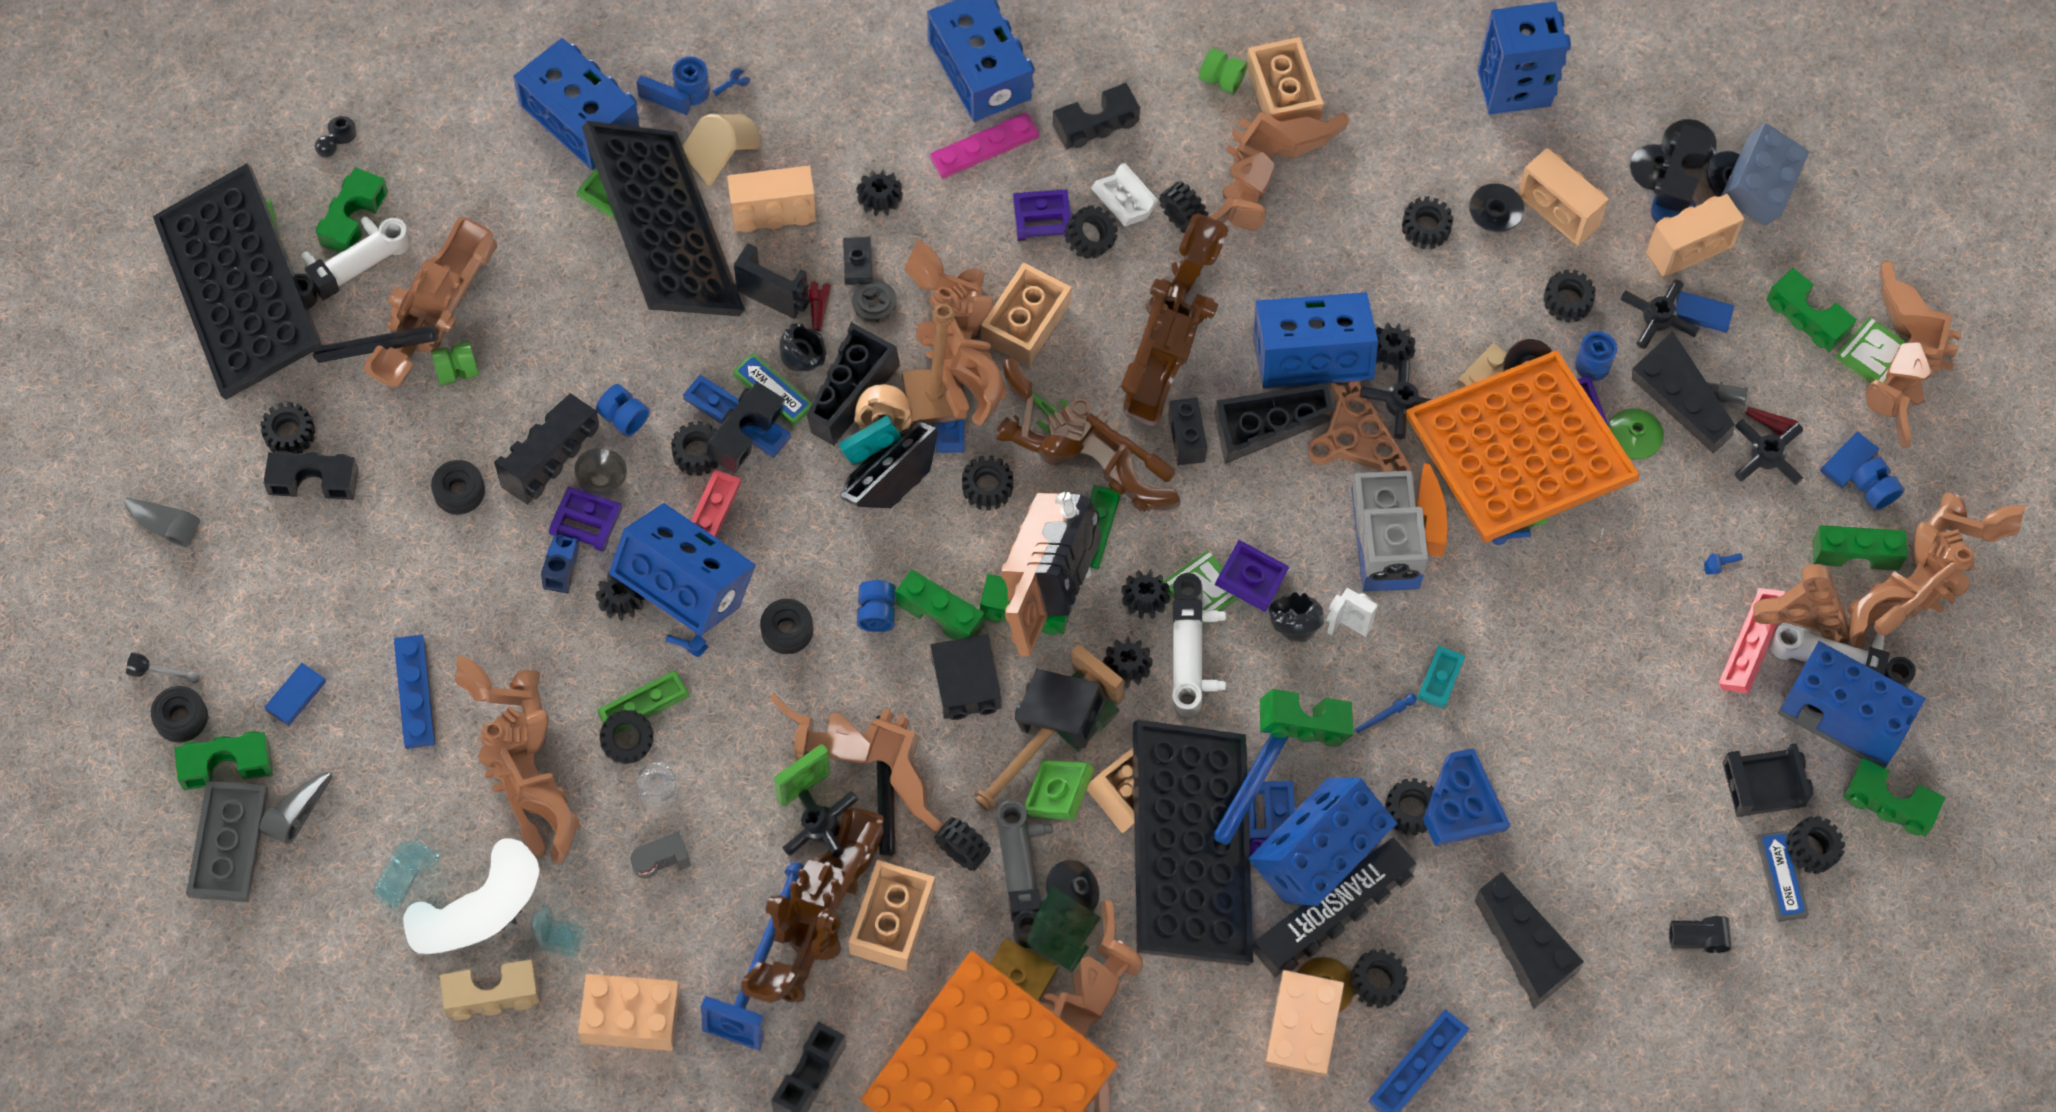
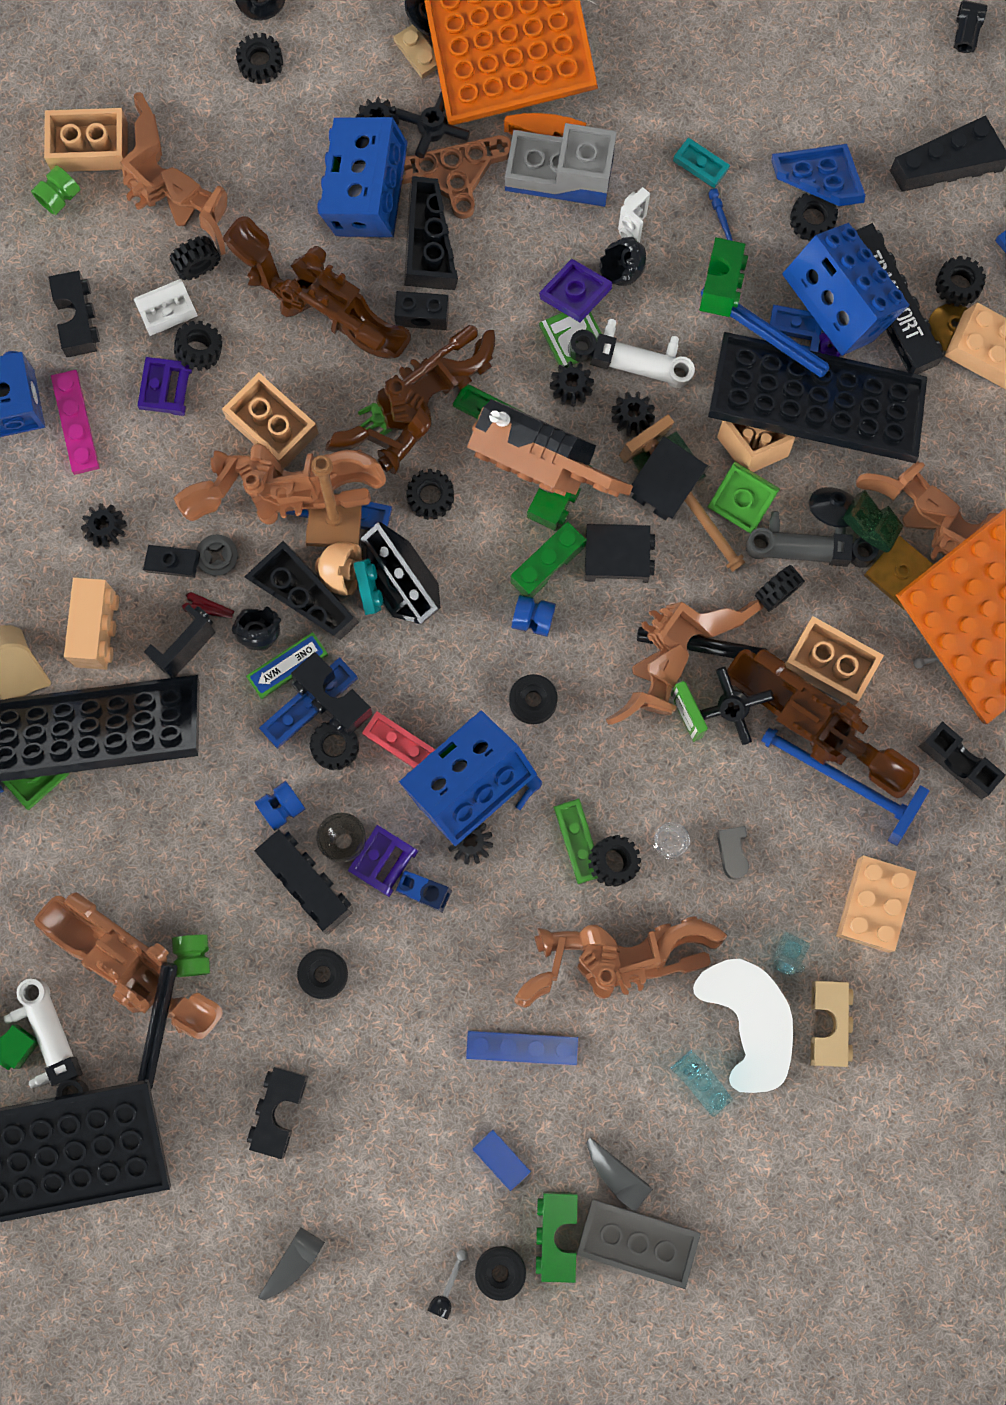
camera: 75 degrees left, 15 degrees up
(287, 414) = (205, 1135): black tyre -> none

